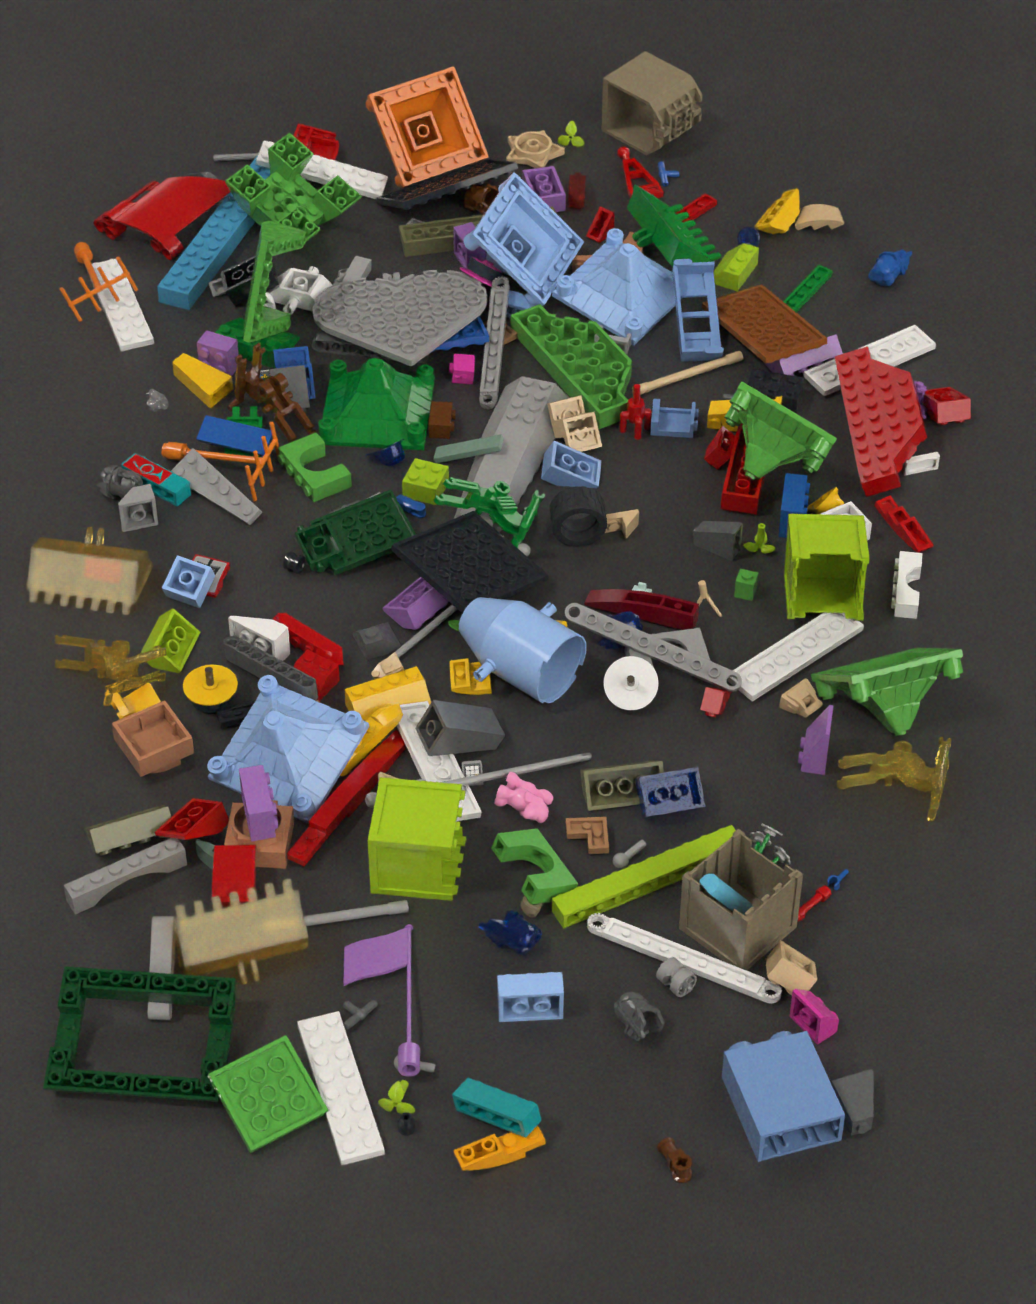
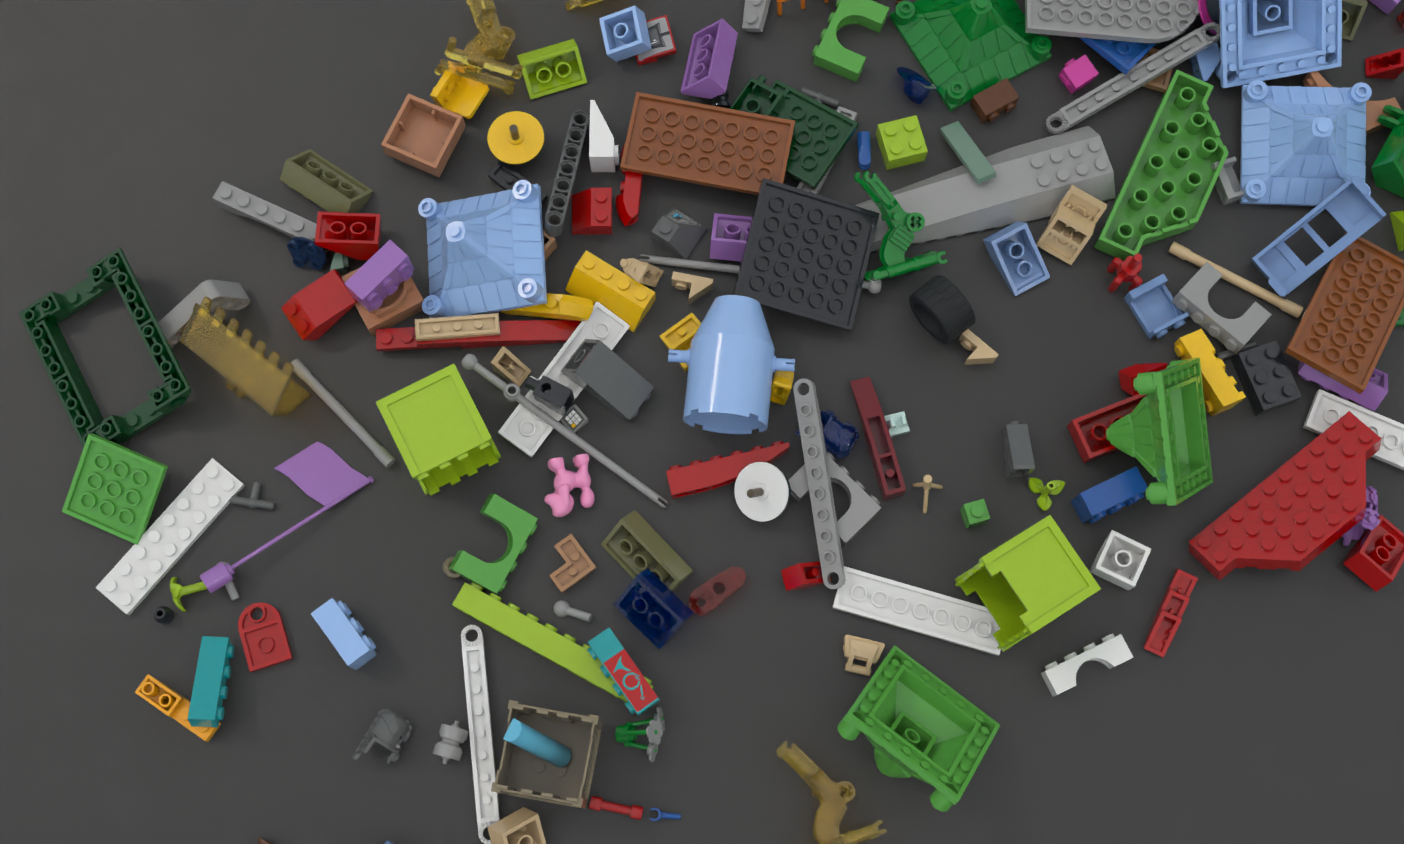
camera: 55 degrees right, 30 degrees up
(179, 864) = (306, 253): none -> dark blue dish
(259, 546) = (710, 61): none -> medium lavender slope
(326, 577) = (705, 144): none -> dark orange plate
(335, 795) = (457, 327): none -> tan tile
(425, 649) = (698, 285): none -> tan slope
(446, 762) = (558, 398): none -> black torso
(484, 1064) = (263, 639): none -> red tile
(512, 932) = (408, 576): clear blue helmet -> none
(589, 710) = (719, 470): none -> red slope
(683, 393) = (1230, 332): none -> light grey arch
(684, 751) = (731, 579): none -> clear red piece
(704, 828) = (623, 671): none -> brick
(816, 744) = (803, 704): medium lavender slope -> none
(826, 502) = (1138, 523): yellow hat -> none
(921, 463) = (1271, 581): white tile -> none

